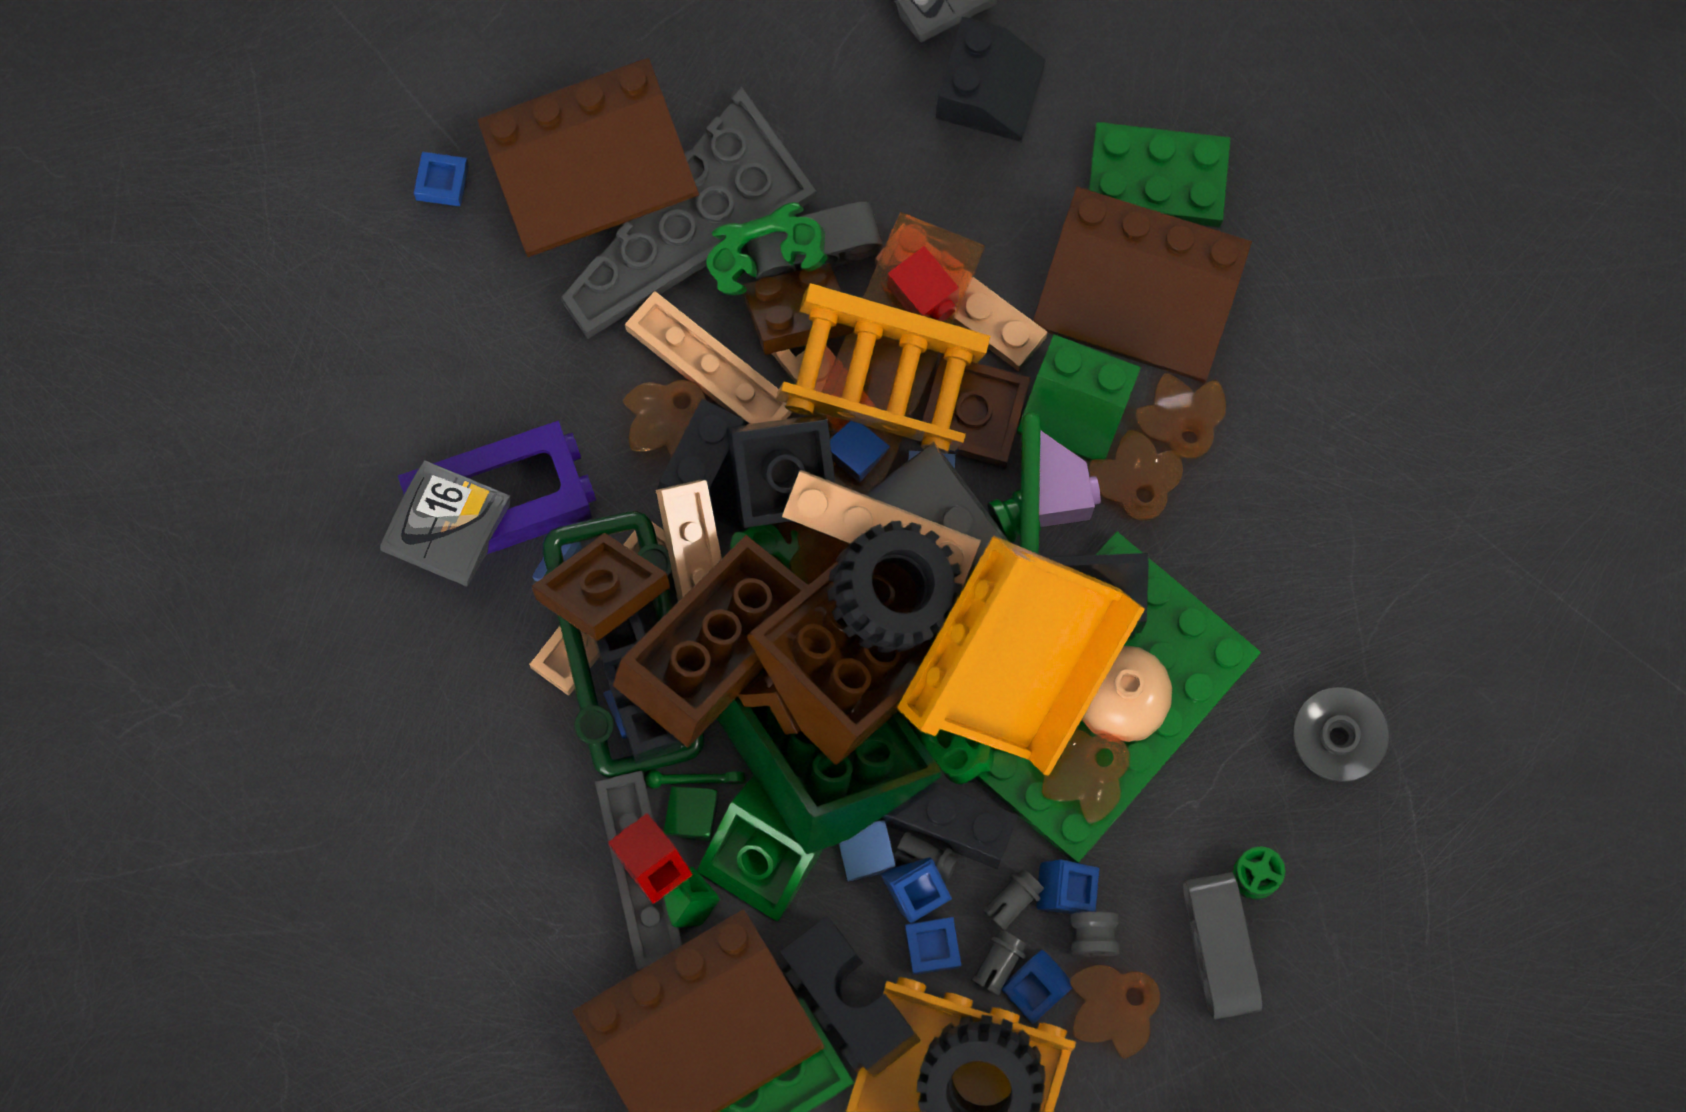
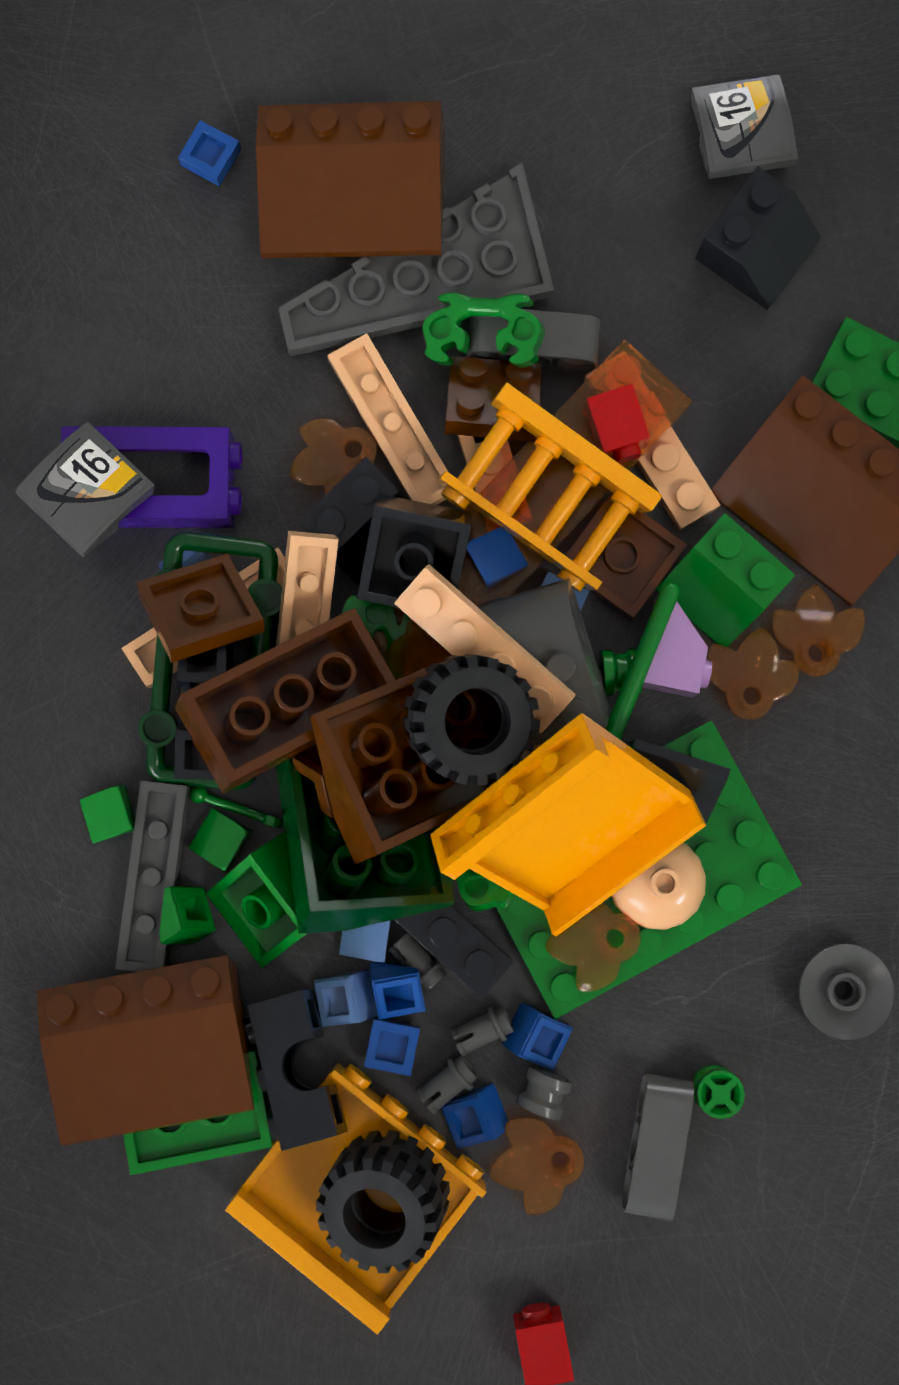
camera: 20 degrees right, 10 degrees up
(573, 828) = (108, 813): none -> green slope
(650, 858) = (157, 877): red brick -> none
(869, 920) = (345, 998): none -> medium blue slope

